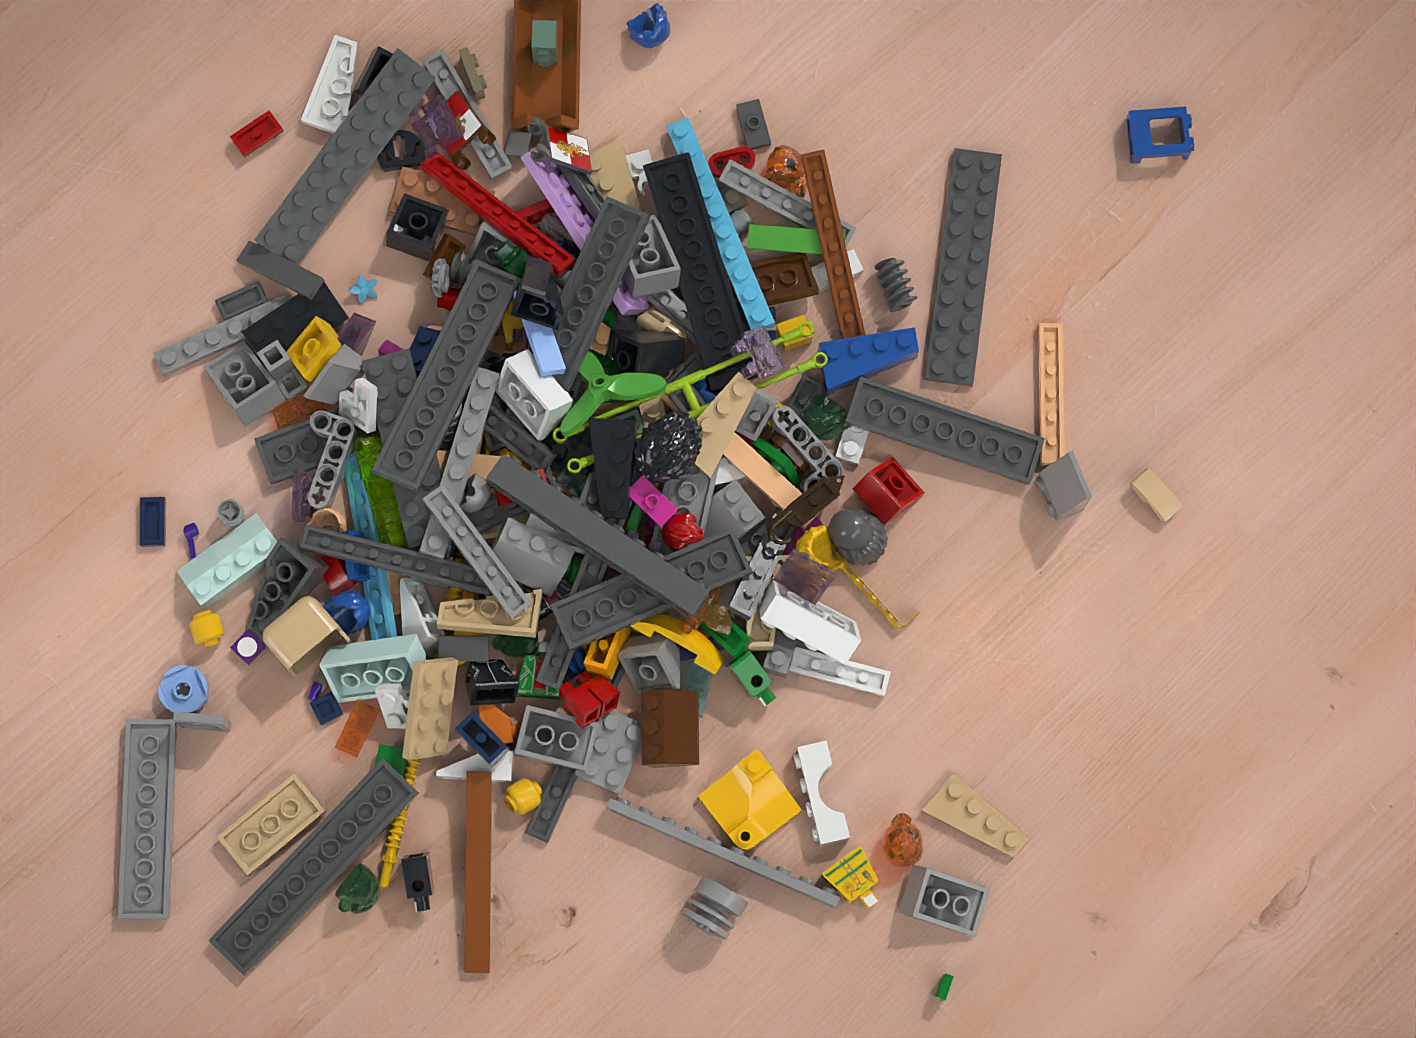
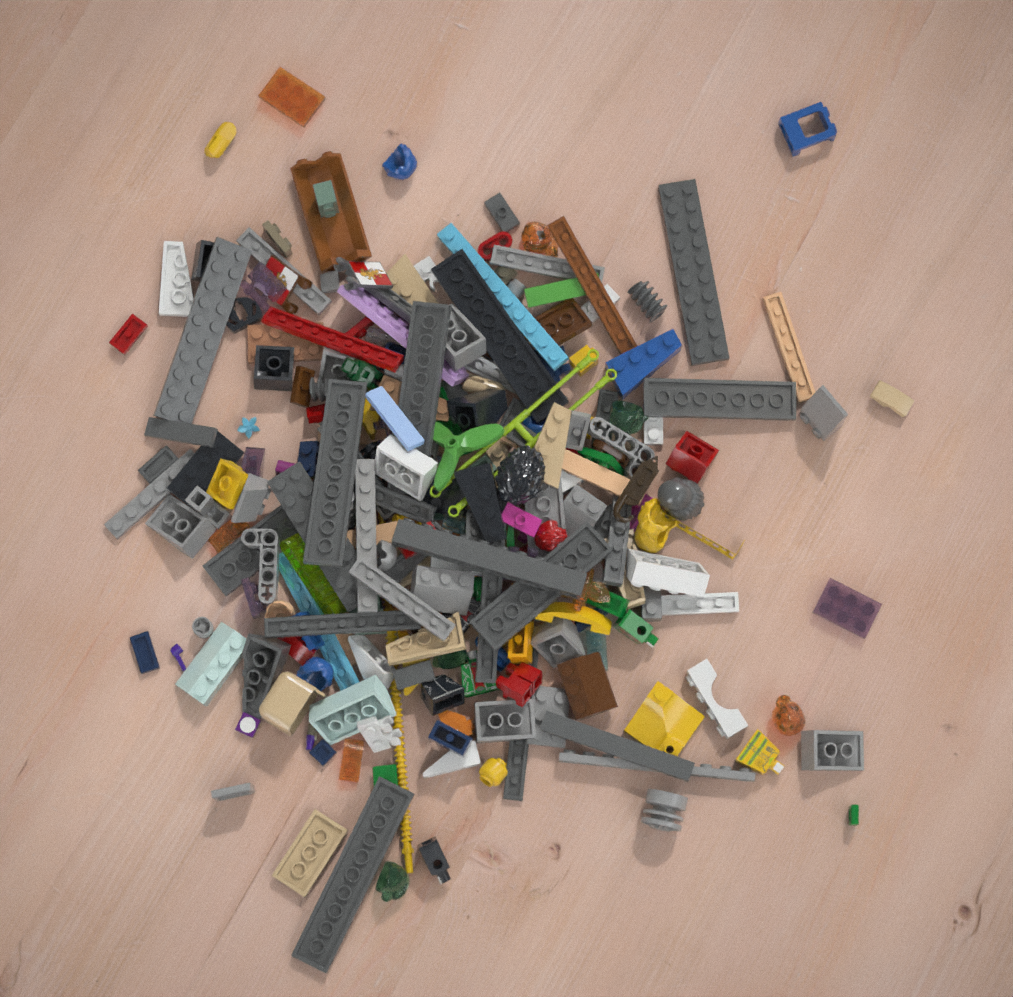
camera: 15 degrees left, 0 degrees up
(147, 819) = (214, 878): light grey plate -> none
(171, 683) = (199, 772): light blue plate -> none
(206, 628) = (213, 720): yellow head -> none
(361, 405) = (277, 516): white plate -> none
(430, 708) = (403, 727): tan plate -> none
(440, 278) = (305, 400): light grey gear -> none
(478, 871) = (478, 839): dark orange tile -> none
(538, 294) = (385, 391): black slope -> none
(682, 812) = (617, 746): none -> dark grey tile
(762, 351) = (566, 381): clear purple plate -> none
(802, 581) = (652, 545): plate -> none
(971, 814) = (830, 679): tan wing -> none
(1018, 733) = (847, 608): none -> clear purple plate

